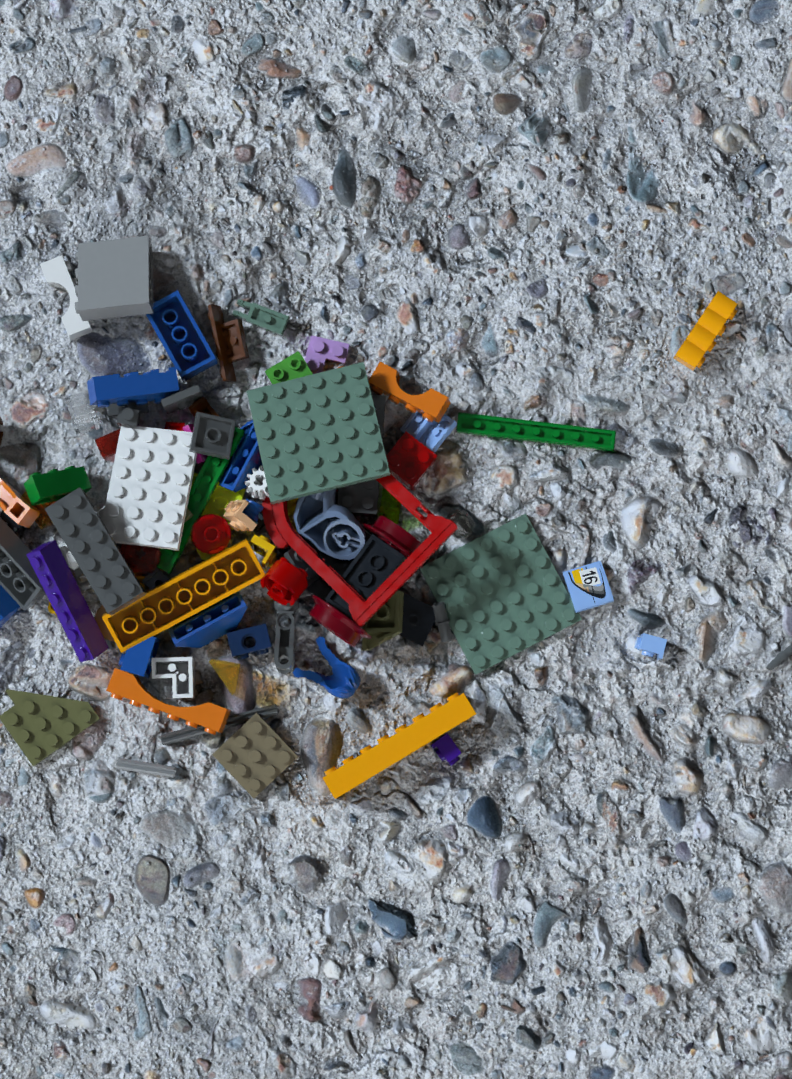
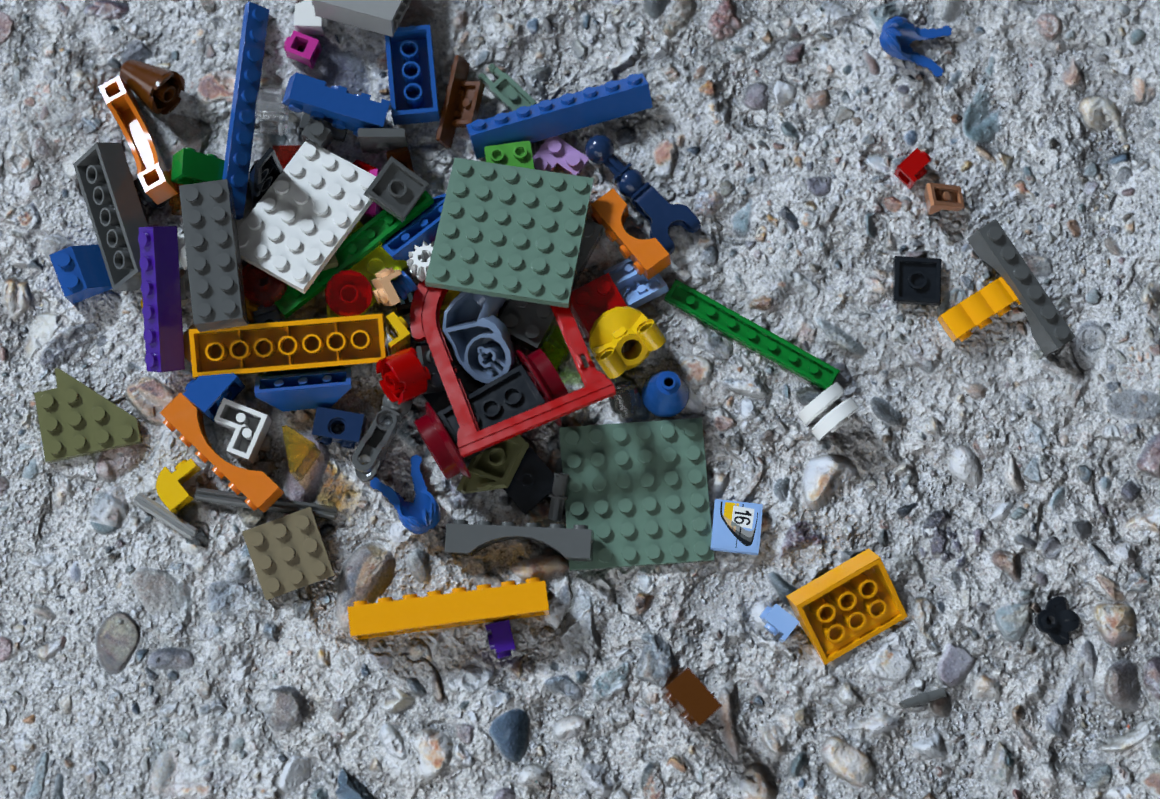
camera: 25 degrees right, 5 degrees down
(58, 414) = (244, 102): none -> blue plate
(77, 345) = (301, 41): none -> dark pink brick
(100, 470) = (263, 175): none -> black wedge
(140, 744) = (171, 488): none -> yellow brick
(313, 318) = (562, 114): none -> blue brick
(389, 684) = (469, 539): none -> dark grey arch
(406, 357) = (643, 196): none -> dark blue piece
(433, 473) = (616, 328): none -> yellow piece
(485, 512) = (665, 394): none -> blue cone
(549, 142) = (899, 33): none -> blue hair
(605, 245) = (913, 168): none -> red brick
(611, 733) = (690, 698): none -> reddish brown brick
(624, 469) = (830, 414): none -> white wheel
(639, 259) = (943, 197): none -> nougat slope
(645, 334) = (916, 281): none -> black plate
(697, 611) = (847, 605): none -> light orange slope
(757, 325) = (1045, 321): none -> dark grey arch

